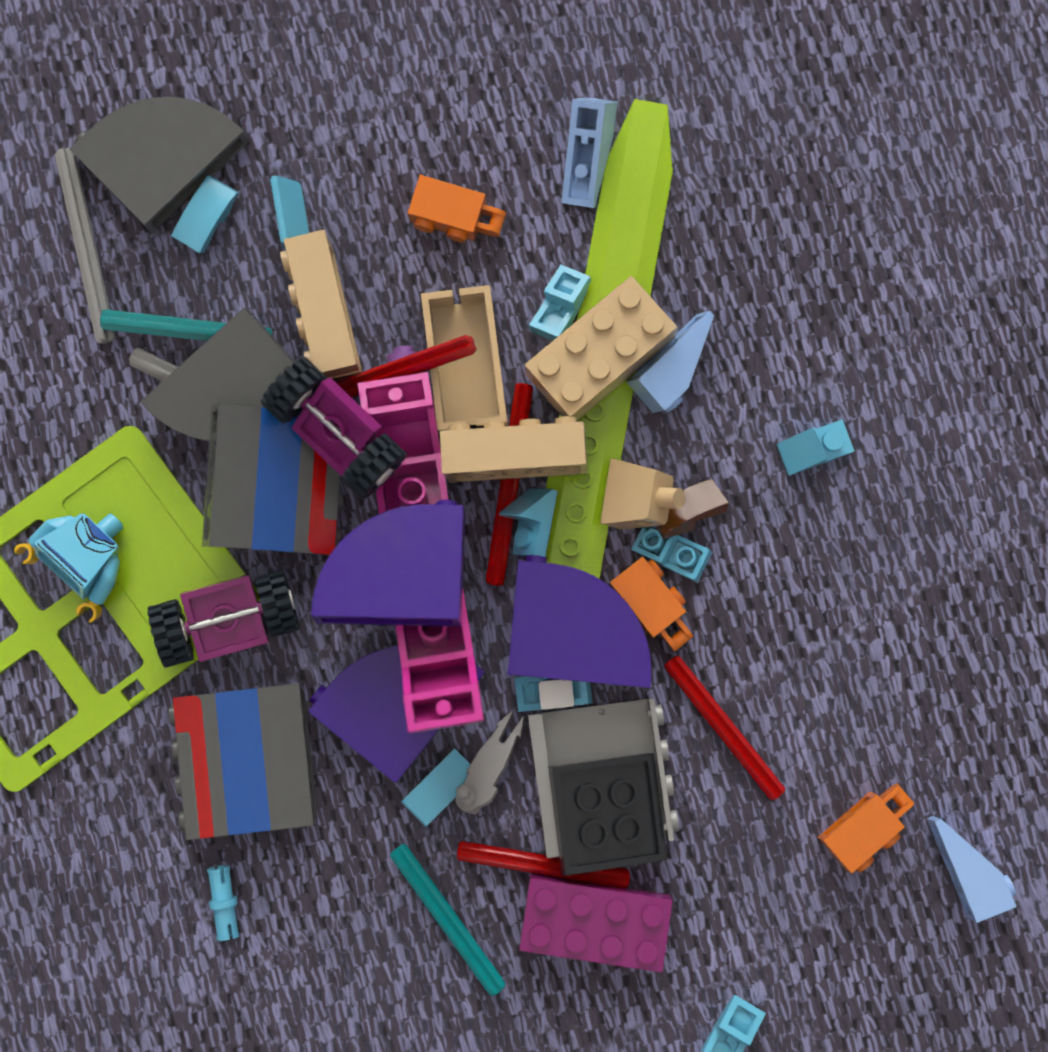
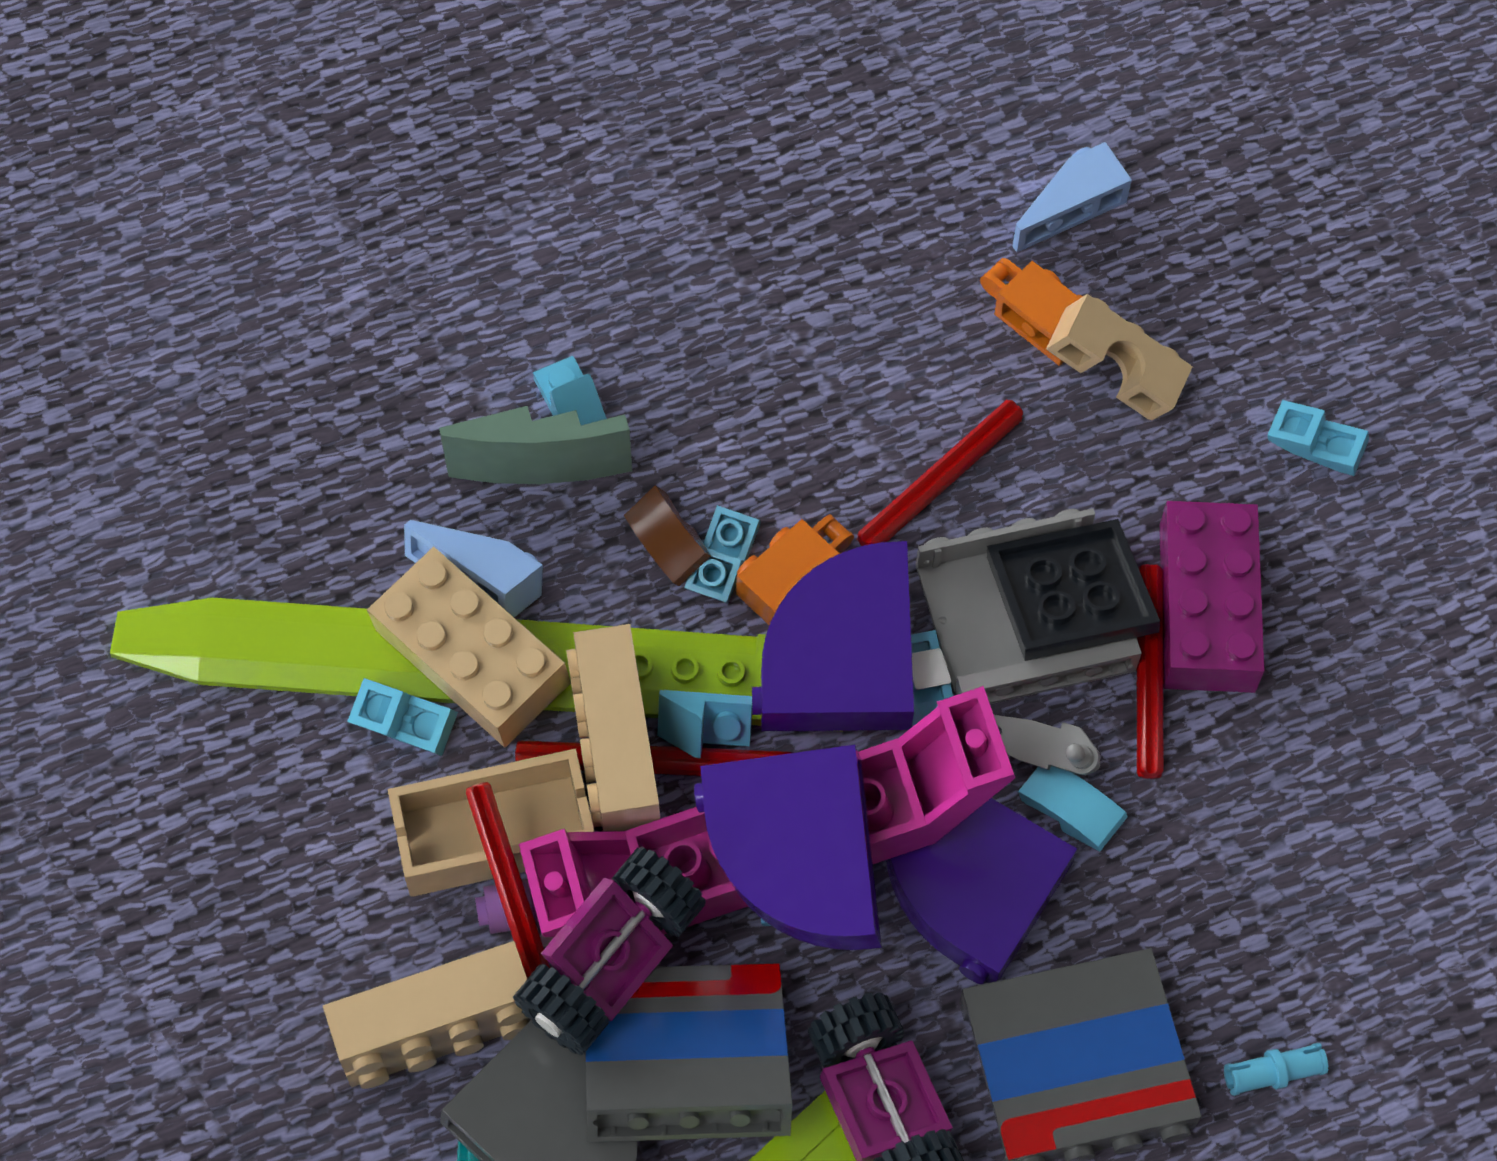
camera: 100 degrees left, 20 degrees down
(289, 208) = (289, 1095): medium azure slope -> none
(447, 919) = (1240, 780): teal axle -> none
(452, 210) = (276, 867): orange brick -> none
(587, 149) = (187, 698): light blue slope -> none
(638, 496) = (658, 587): tan torso -> none
(767, 403) = (541, 451): none -> sand green slope
(795, 908) = (1150, 371): none -> tan arch

